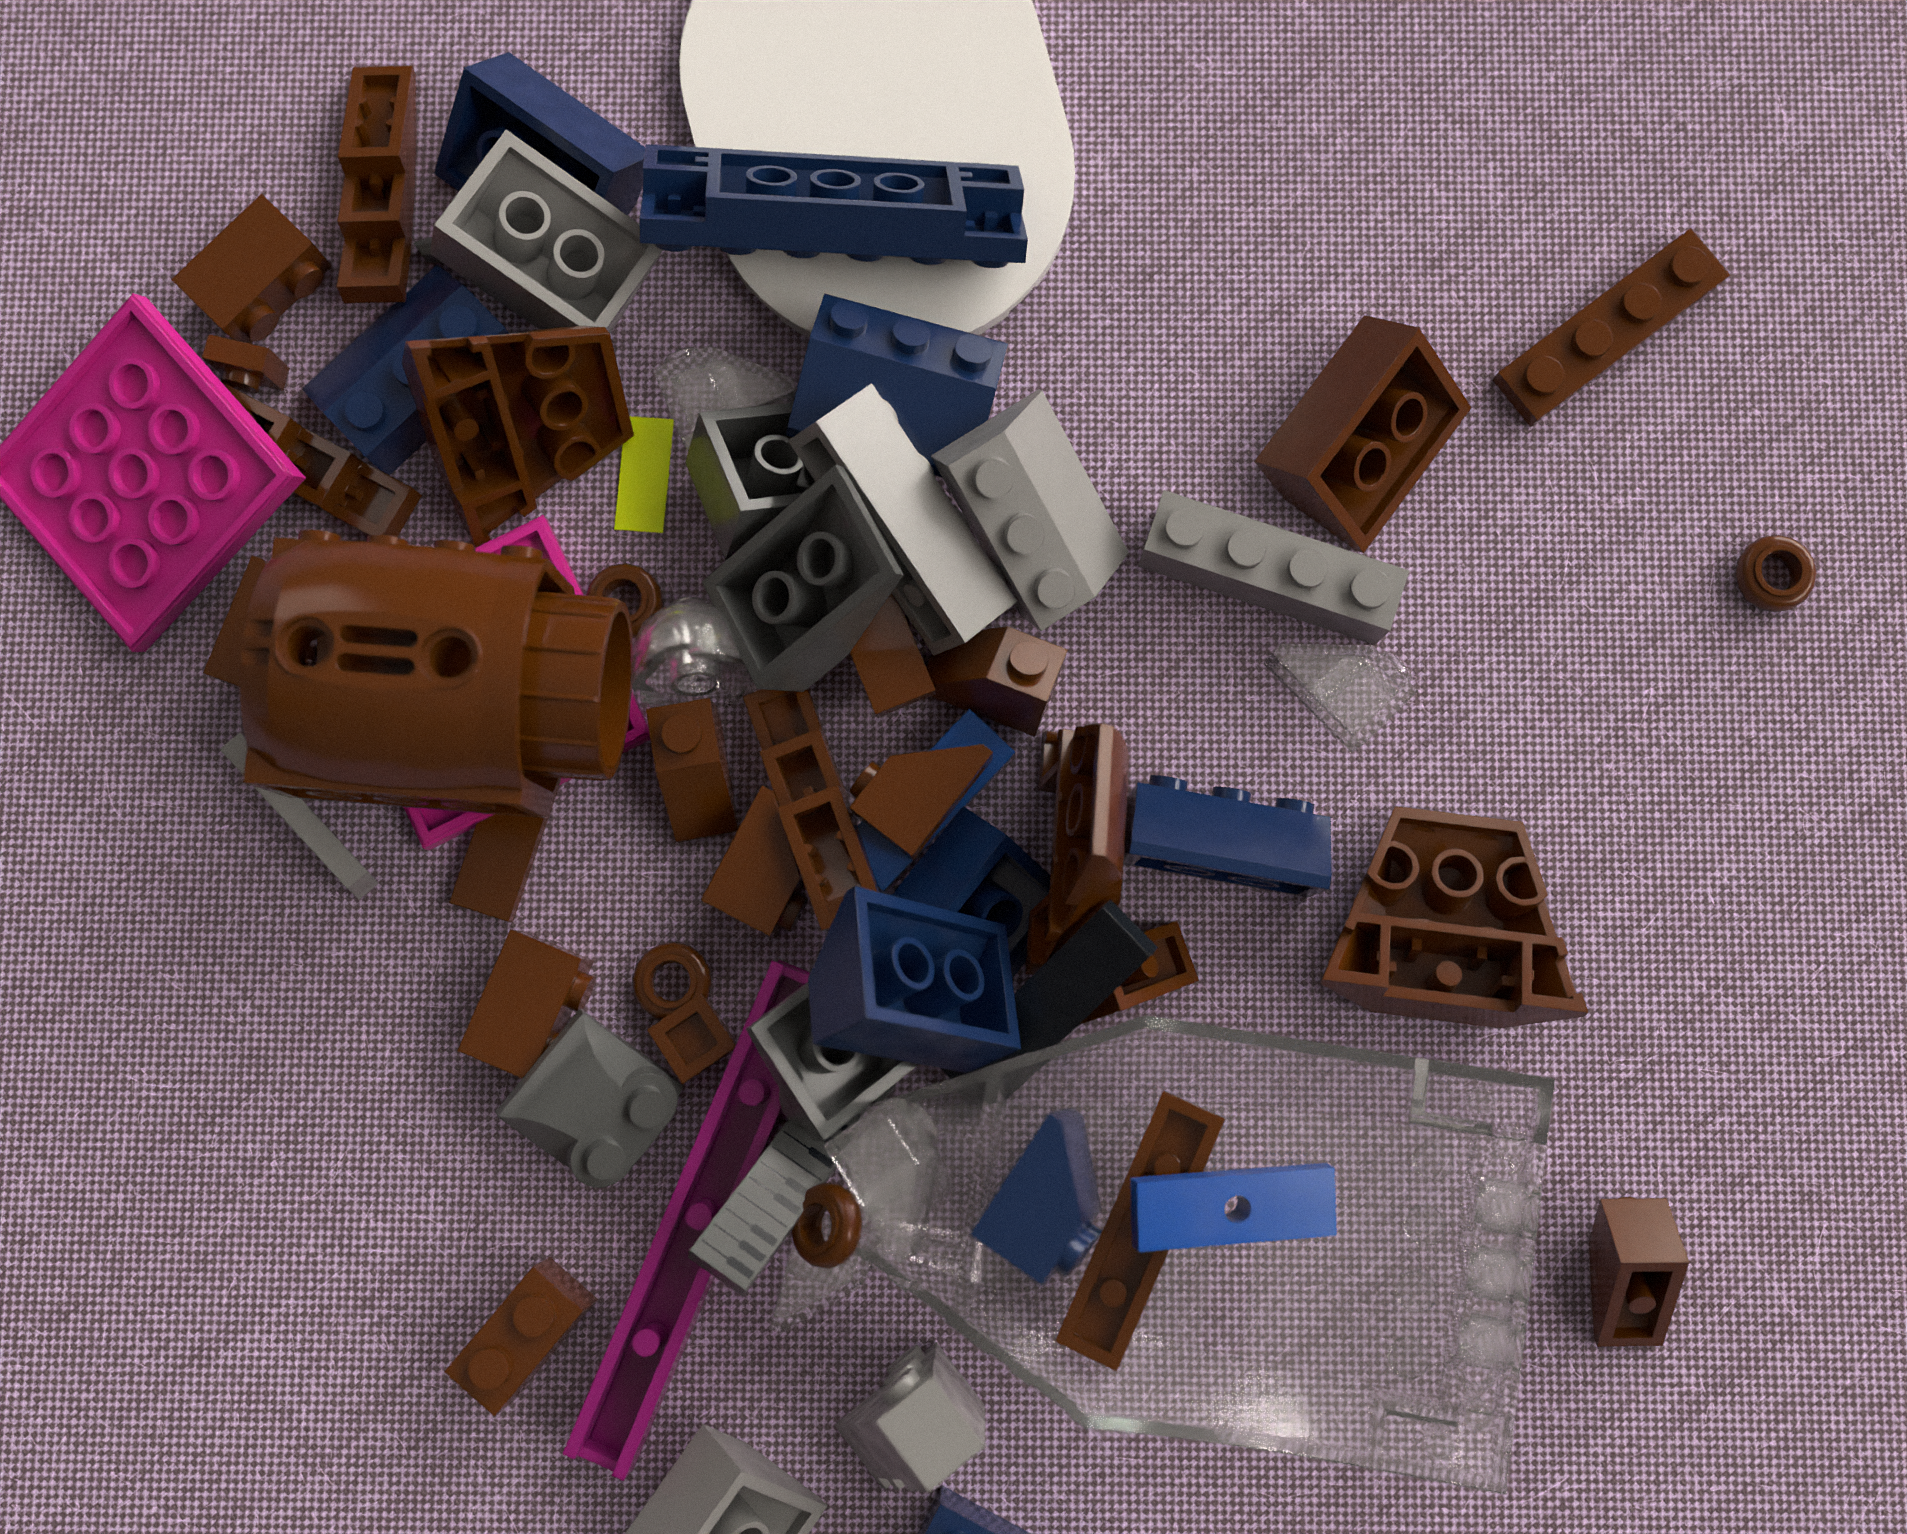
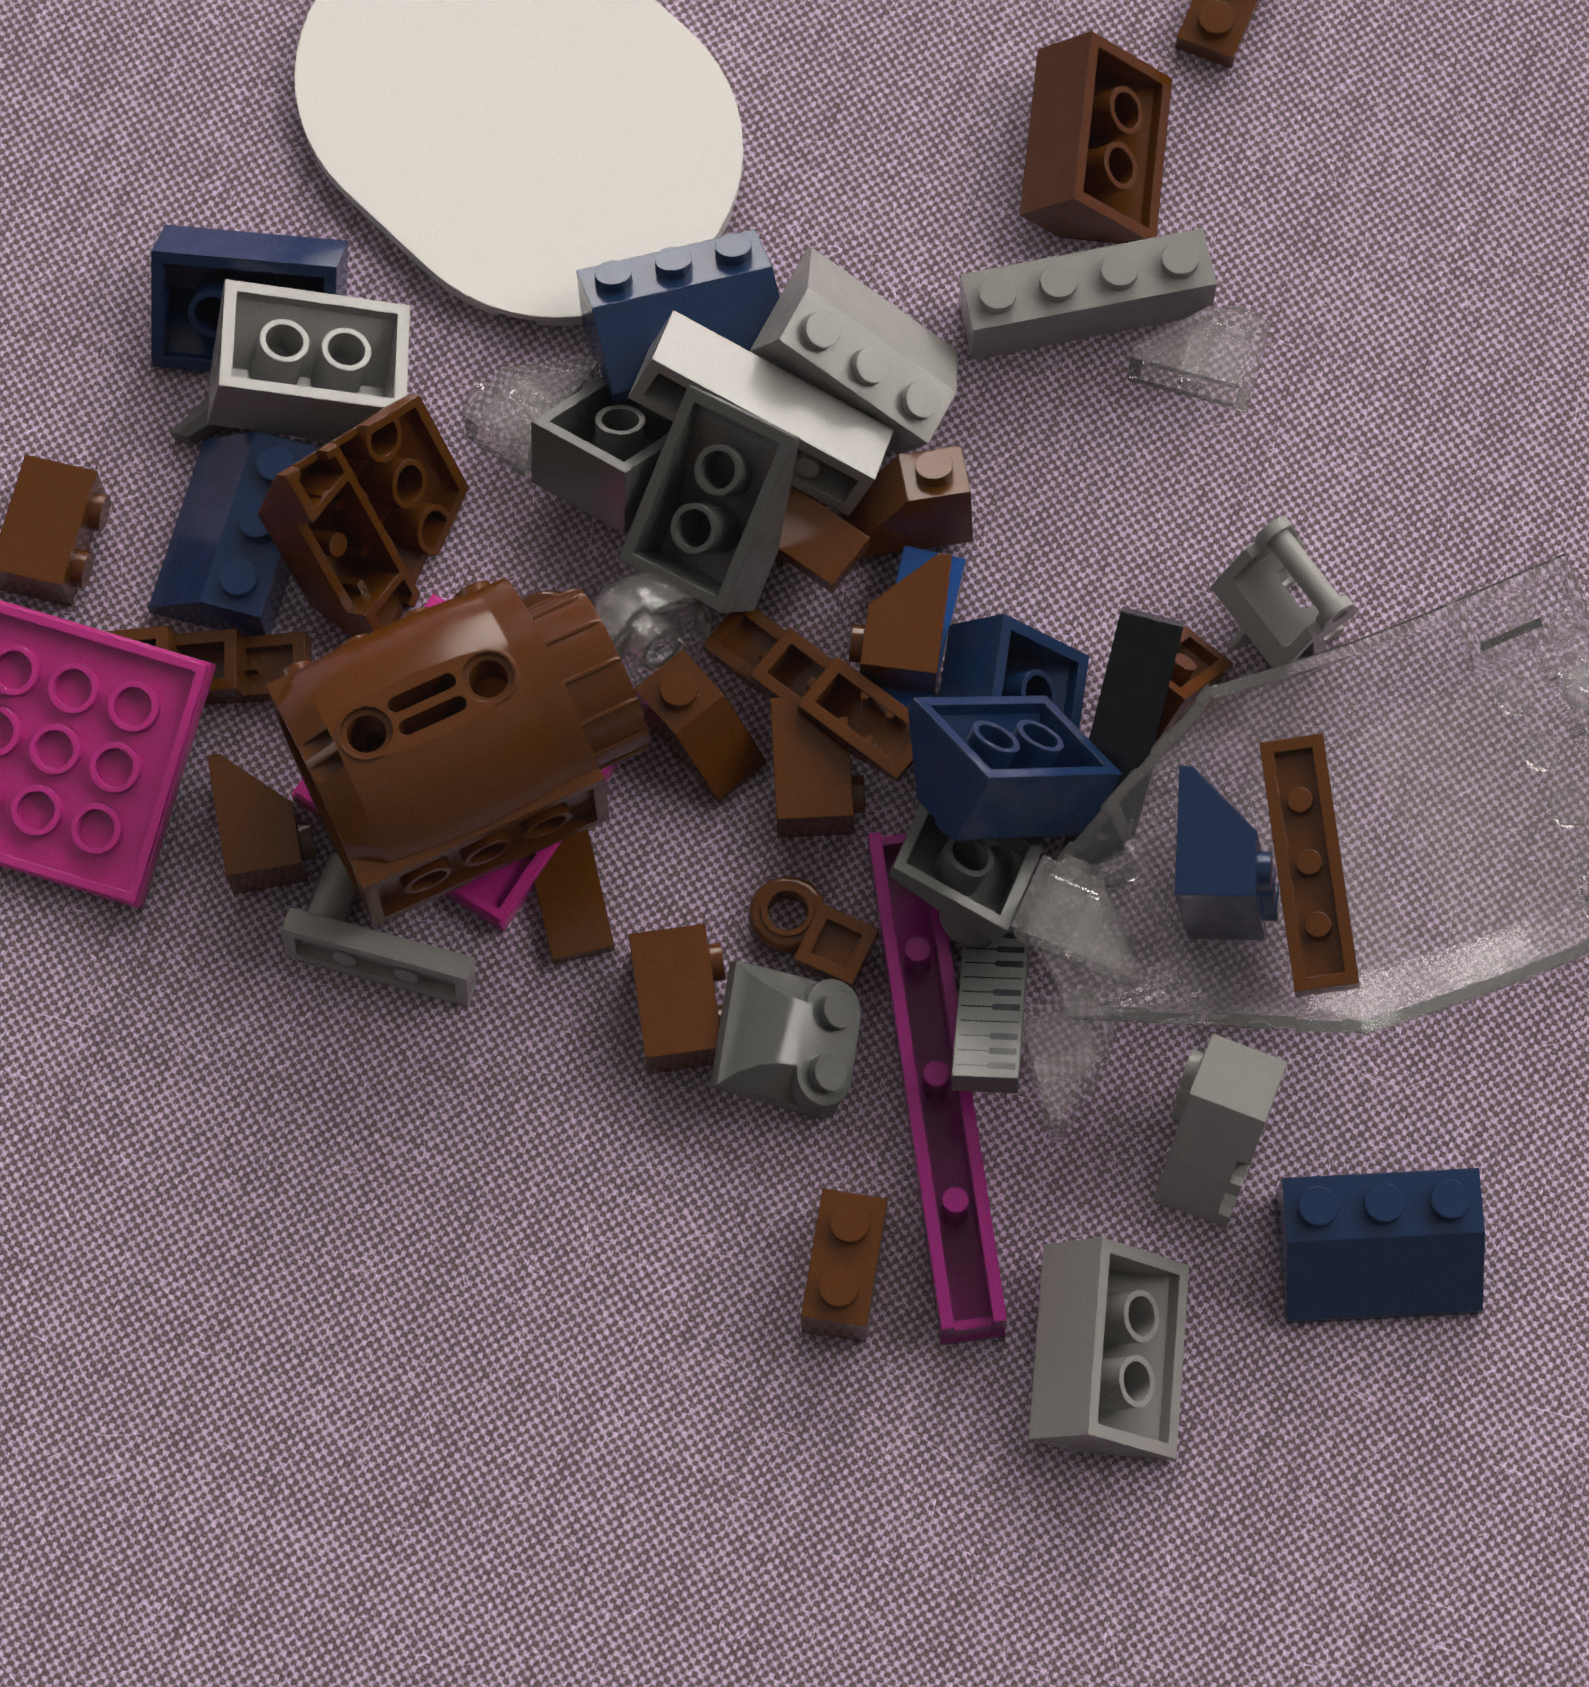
camera: 35 degrees left, 10 degrees down
(245, 364) = (92, 605): reddish brown plate -> none
(378, 184) = (112, 398): reddish brown slope -> none
(644, 476) = (498, 518): neon yellow sticker -> none
(832, 205) = (536, 197): dark blue slope -> none
(845, 1226) = (1070, 1001): reddish brown piece -> none
(1090, 785) = (1069, 570): reddish brown wedge -> none
(1228, 837) = (1181, 530): dark blue slope -> none
(1252, 965) = (1265, 610): none -> light grey piece
(1270, 1206) = (1395, 774): blue tile -> none
(1454, 927) = (1417, 497): reddish brown wedge -> none
(1796, 559) = (1507, 53): reddish brown piece -> none

